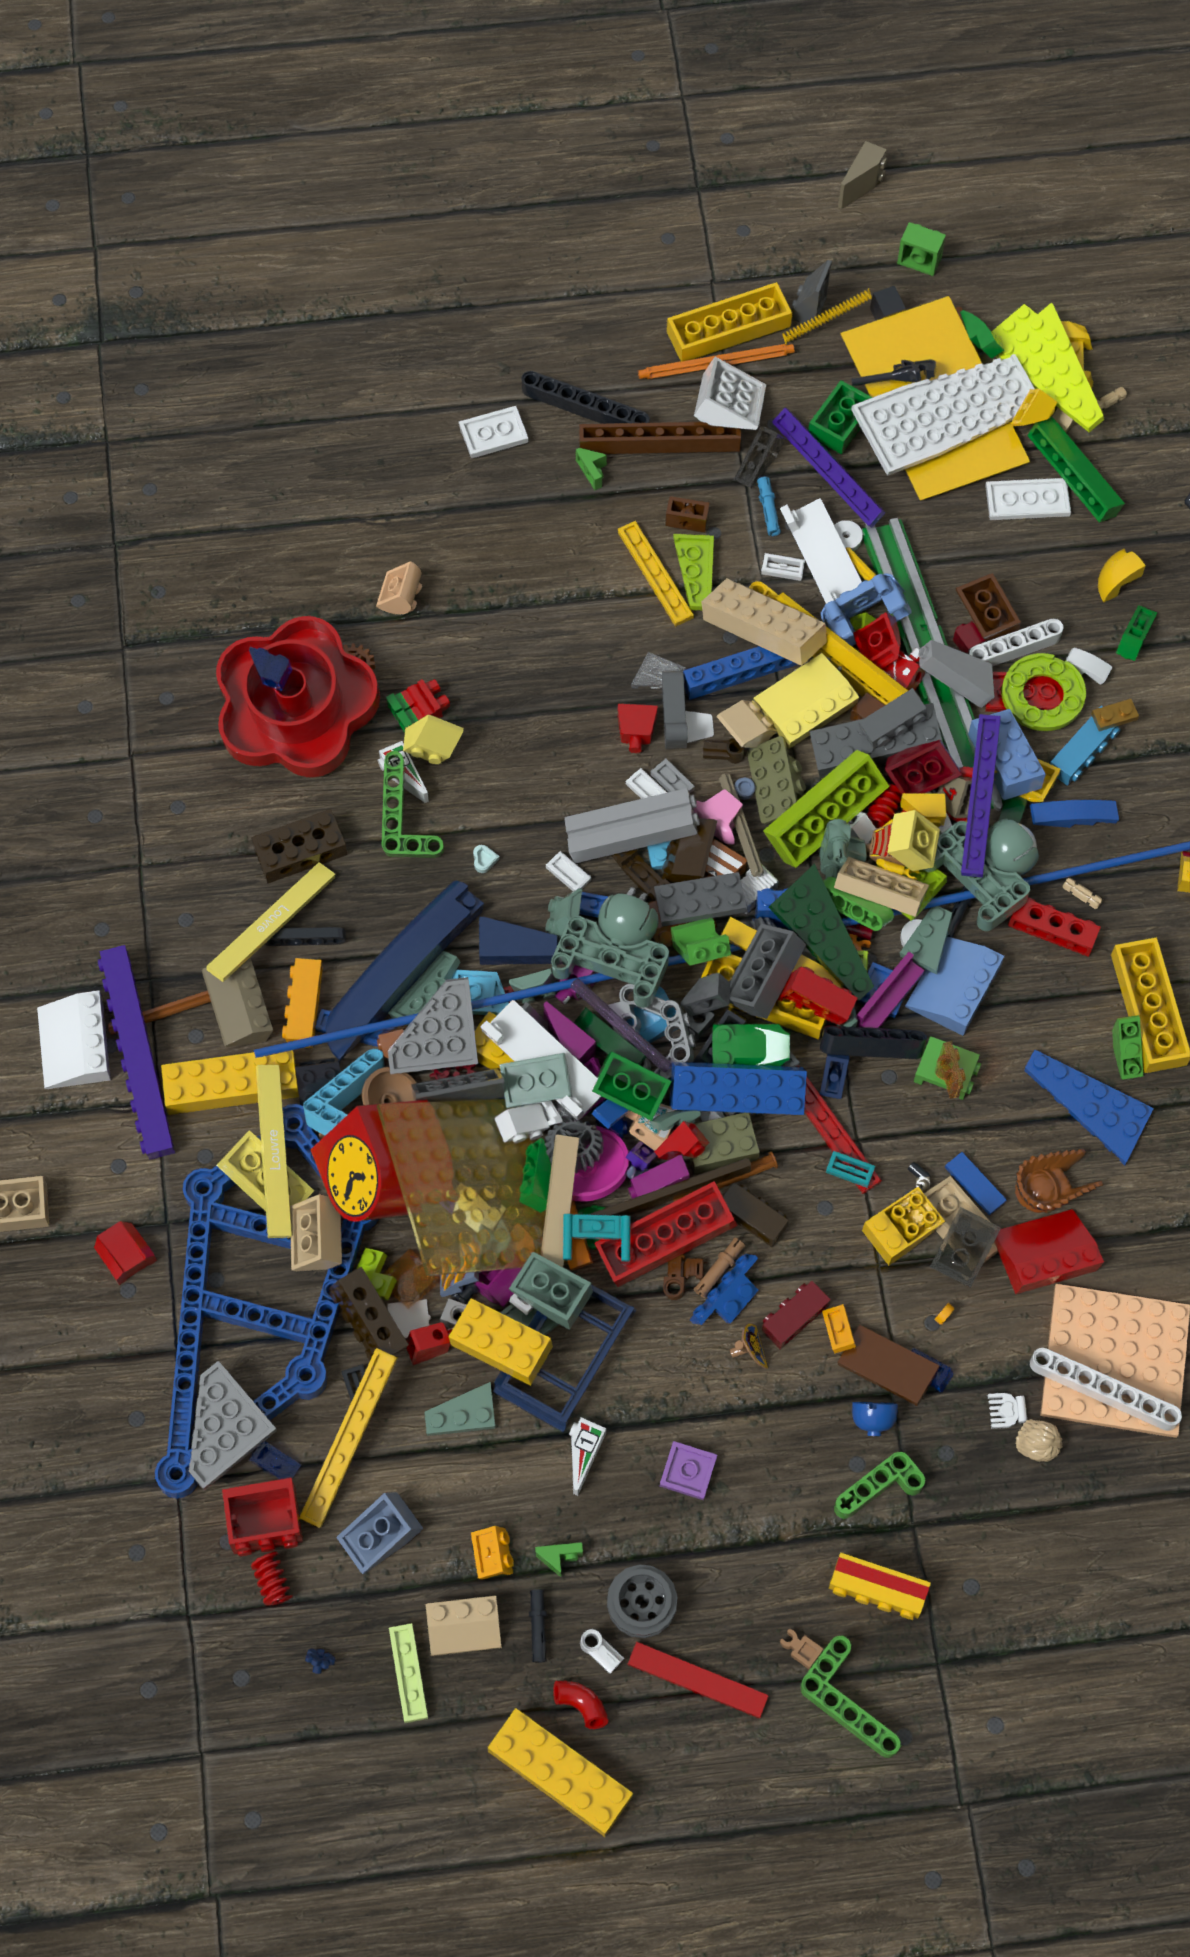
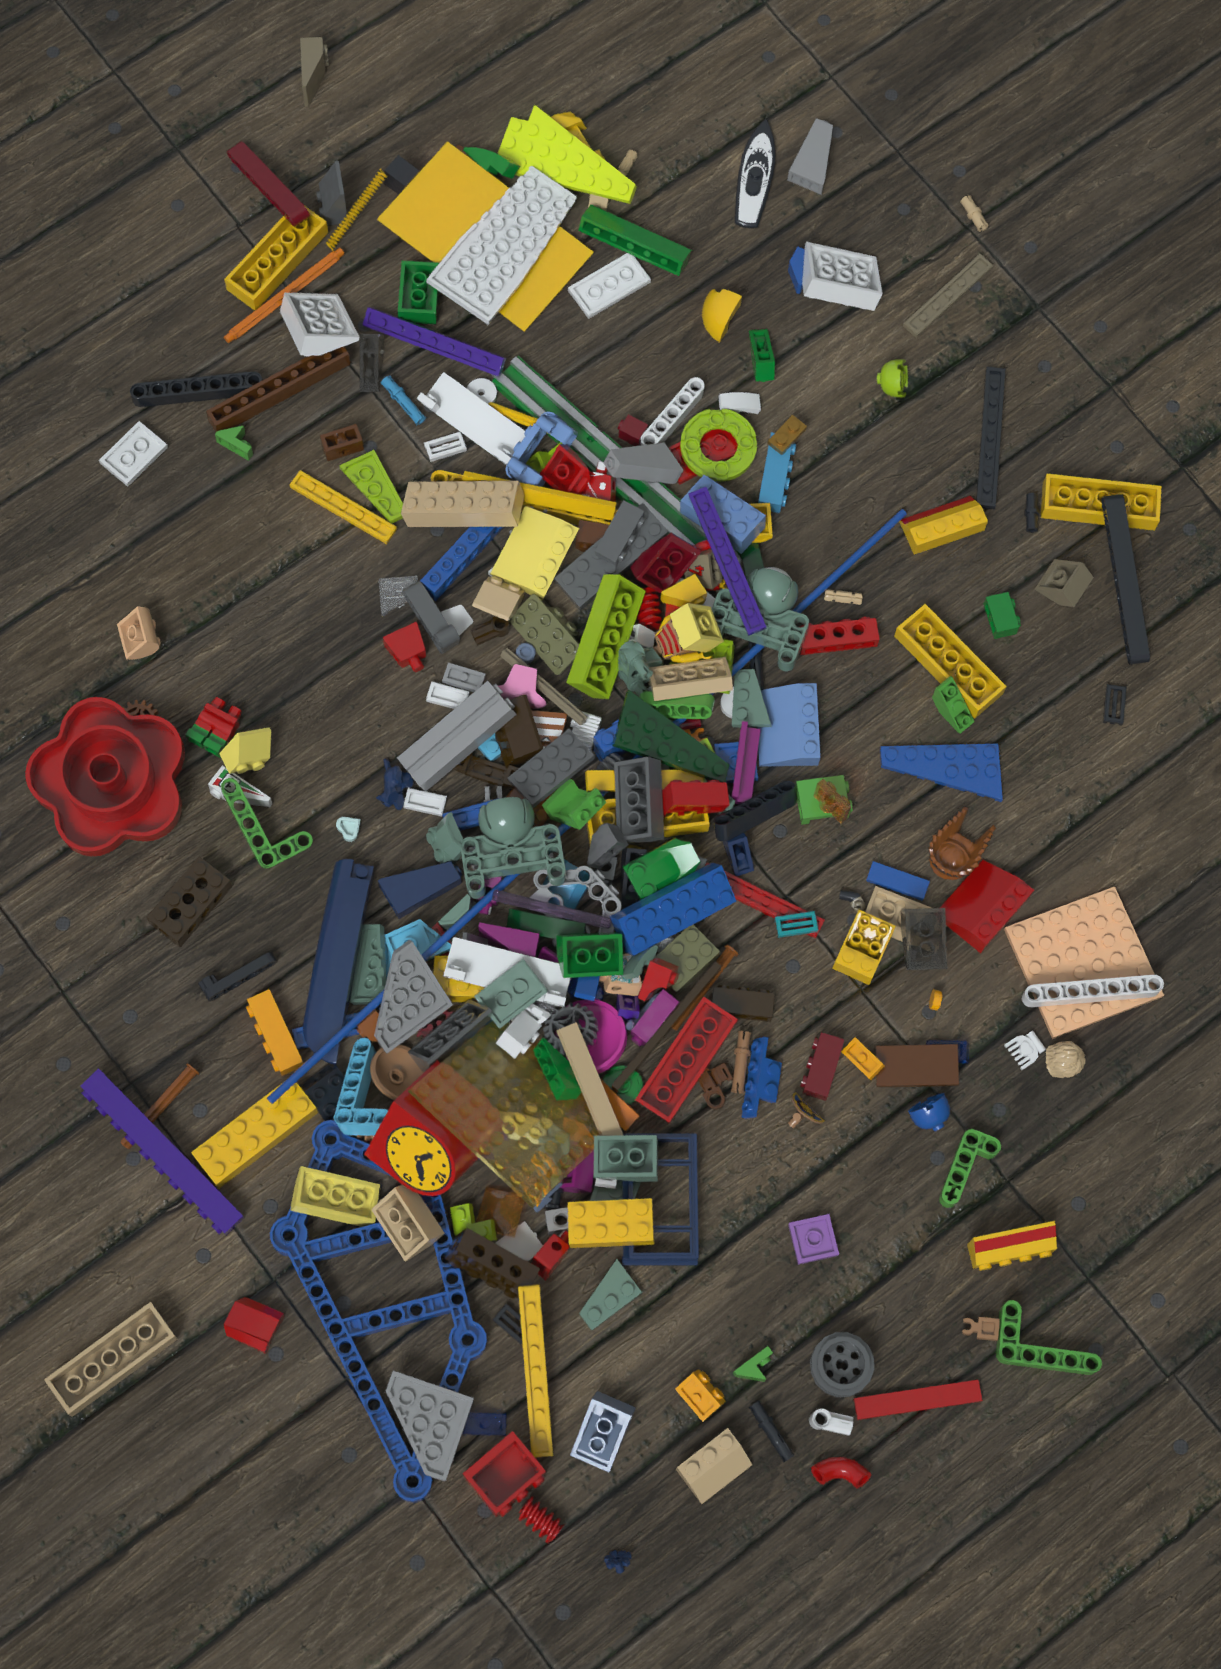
camera: 35 degrees left, 5 degrees up
(74, 1041) = (100, 1173): white slope -> none
(239, 1006) = (220, 1062): dark tan slope -> none
(270, 922) = (208, 980): light yellow tile -> none
(271, 669) = (82, 765): clear blue slope -> none
(273, 1151) = (331, 1172): light yellow tile -> none
(408, 1673) = (693, 1529): yellowish green plate -> none
(549, 839) = (394, 783): none -> dark blue animal
(560, 1772) = (858, 1535): yellow brick -> none
(585, 1445) = (722, 1268): slope -> none
(596, 1228) = (631, 1087): teal plate -> none
(759, 255) = (268, 183): none -> dark red beam
(906, 372) = (452, 226): black piece -> none
(921, 249) = (399, 110): bright green brick -> none
(989, 607) = (635, 395): reddish brown slope -> none
(1035, 408) = (575, 206): yellow slope -> none
(1074, 812) = (799, 533): blue slope -> none

